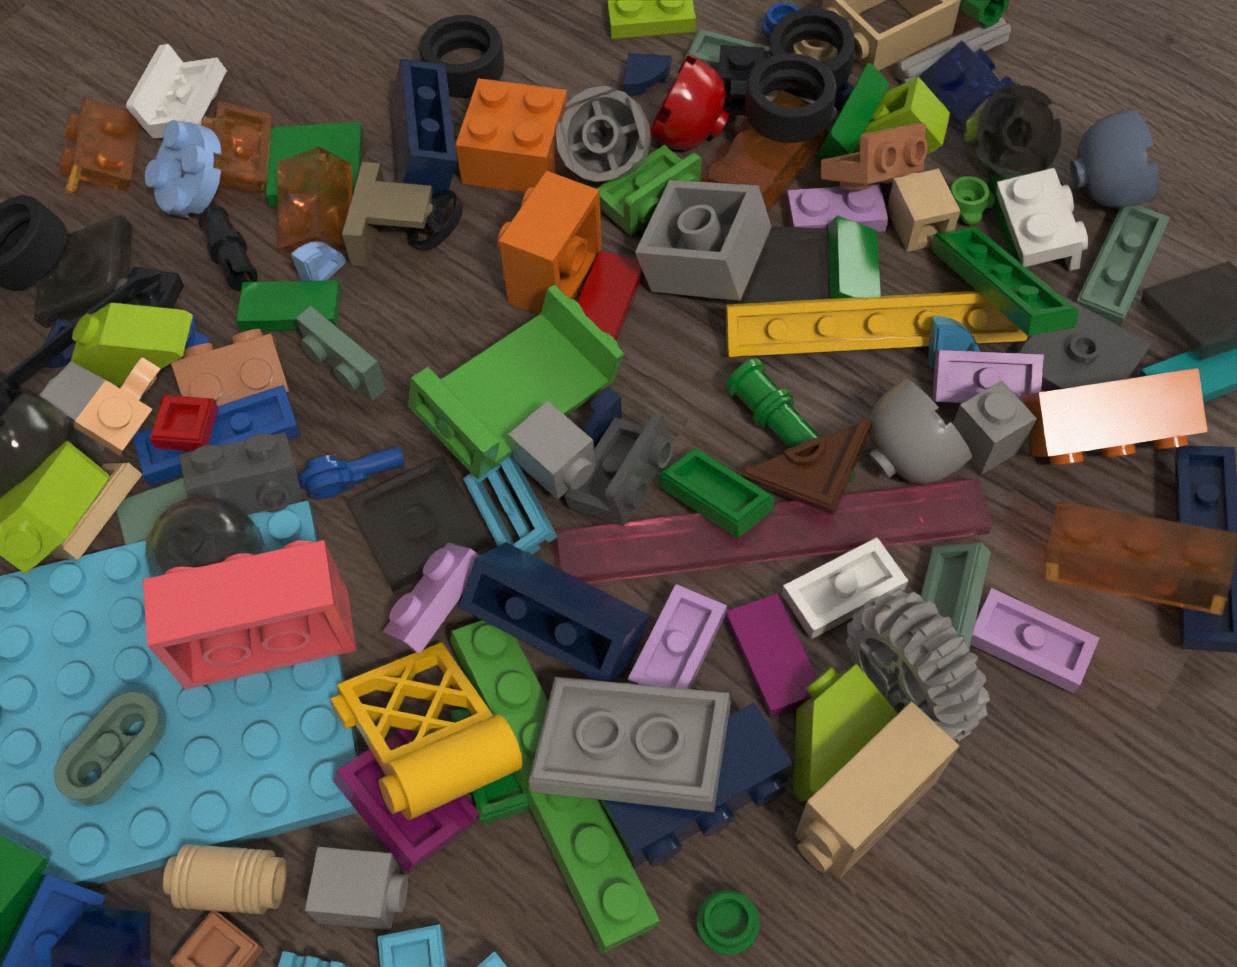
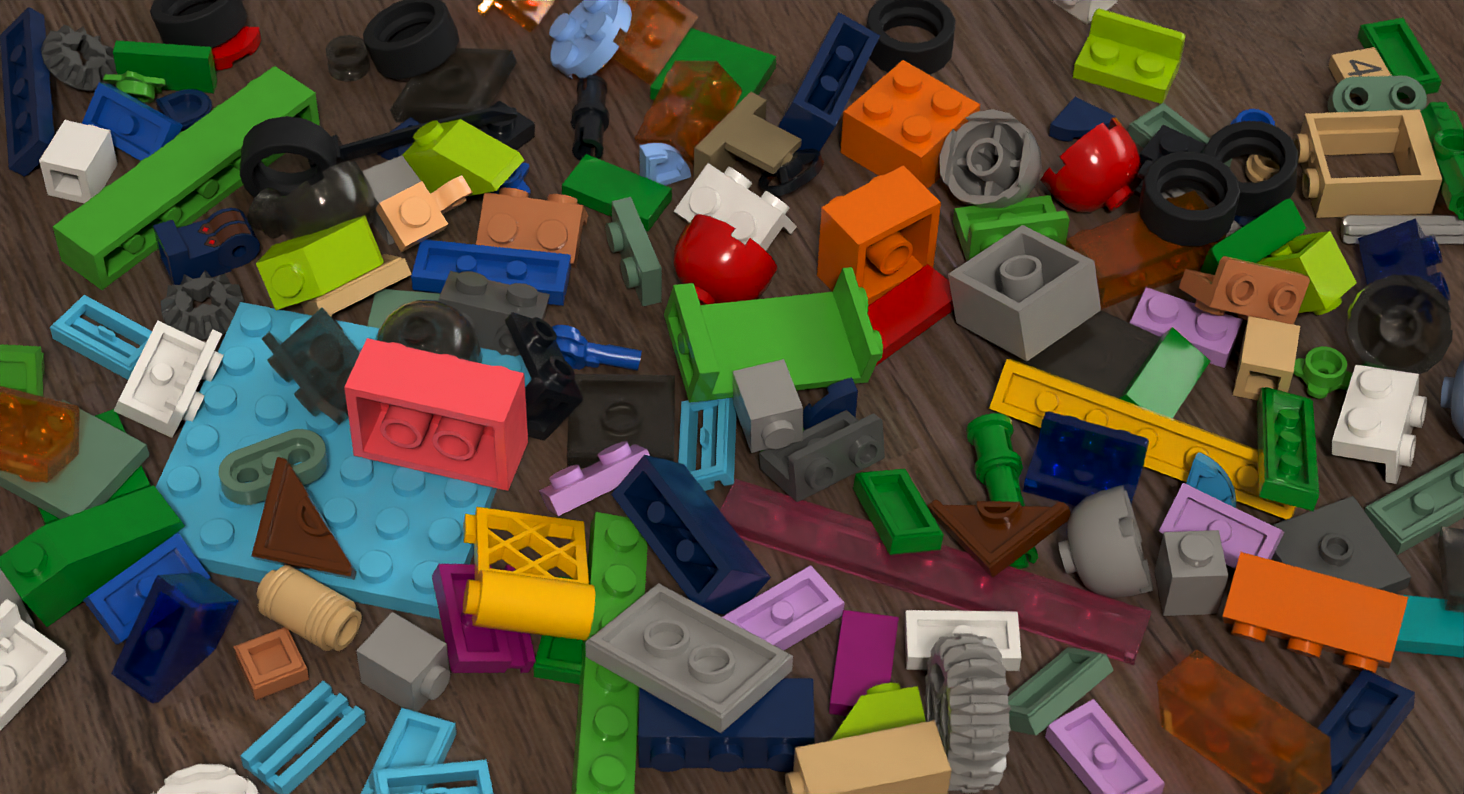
camera: 25 degrees right, 10 degrees down
(99, 613) = (319, 361): none -> clear smoke bracket
(170, 807) = (295, 530): none -> reddish brown tile
(184, 423) = (468, 247): red tile -> none
(344, 524) = (552, 391): none -> black bracket
(407, 280) = (730, 200): none -> white bracket
(427, 334) = (721, 264): none -> red cylinder
(842, 370) = (1083, 459): none -> clear blue bracket

